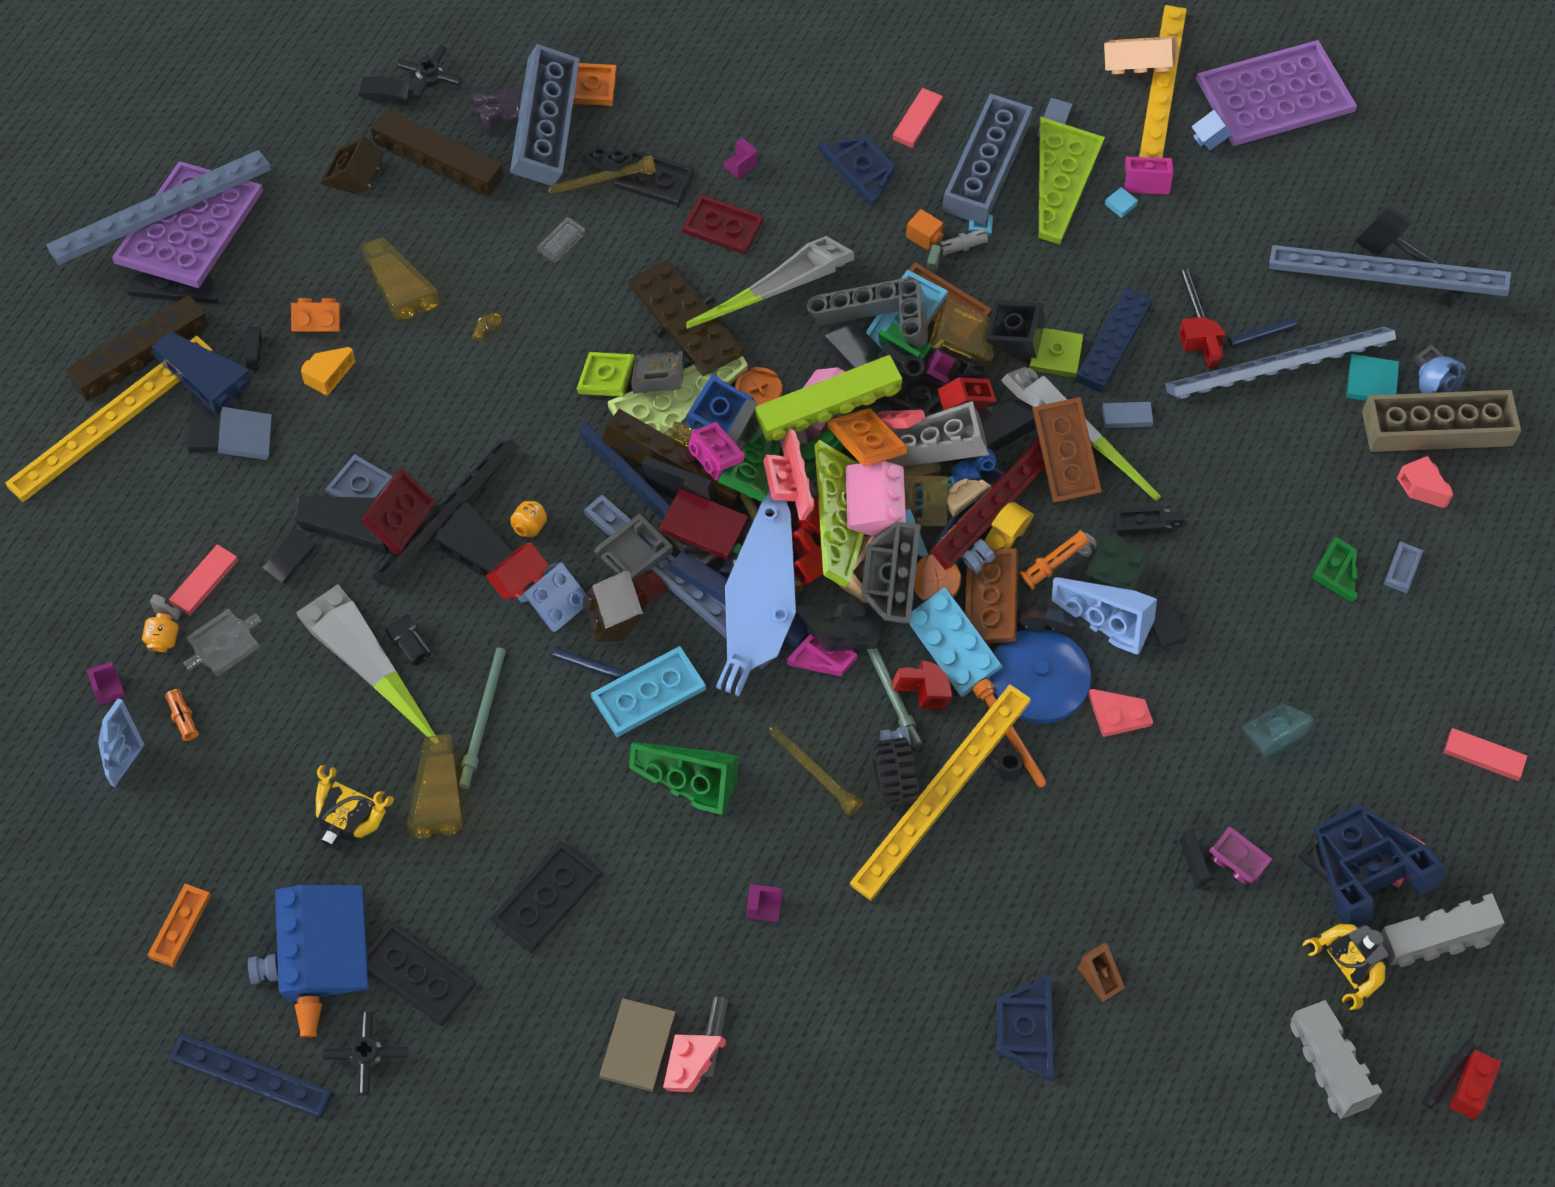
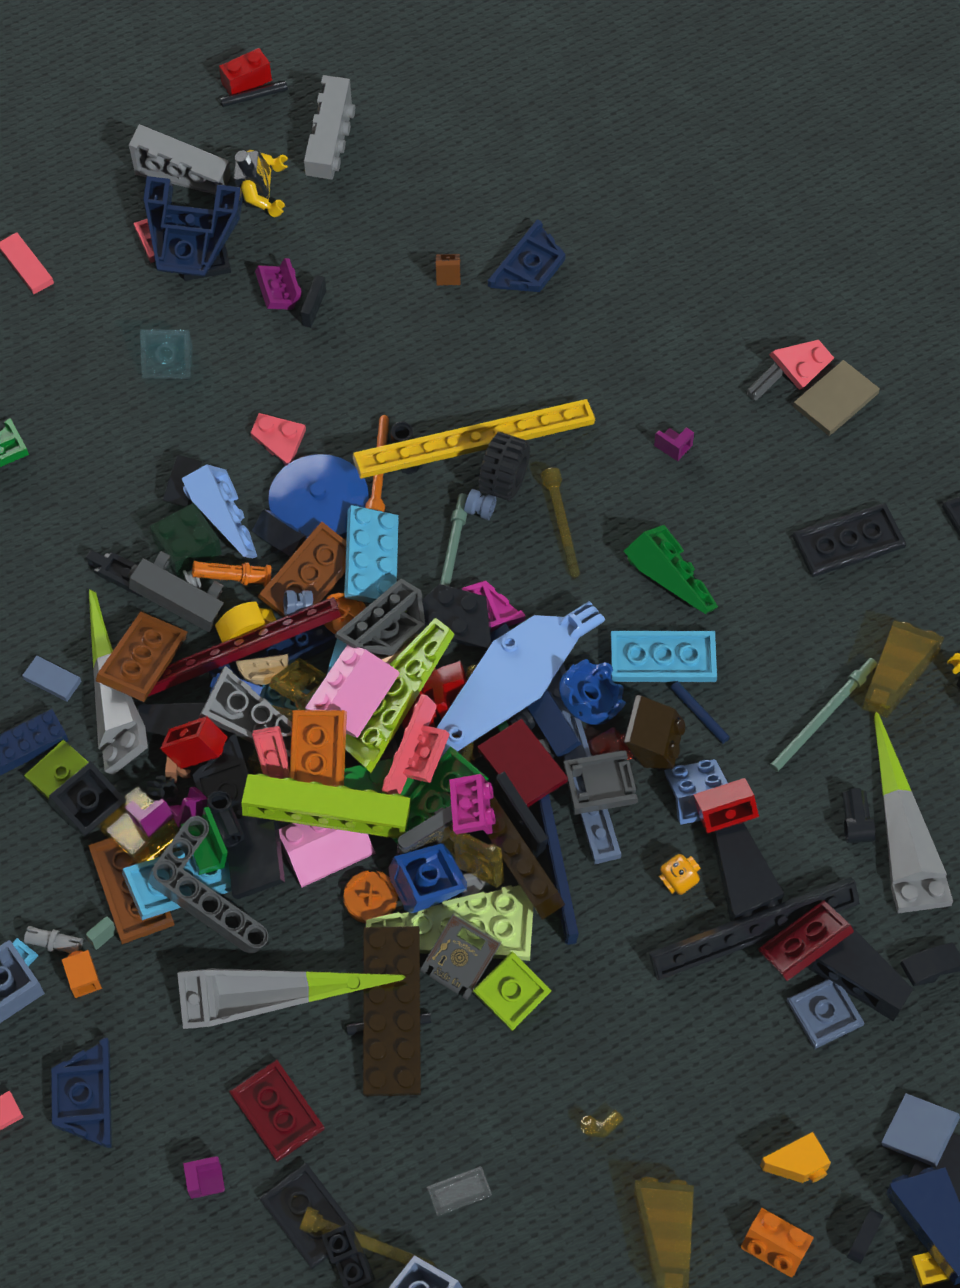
camera: 145 degrees left, 0 degrees up
(671, 612) = (597, 682): none -> blue plate
(928, 681) = (420, 531): red brick -> none
(956, 326) = (151, 818): none -> magenta panel
(1084, 515) = (176, 594): none -> dark grey brick

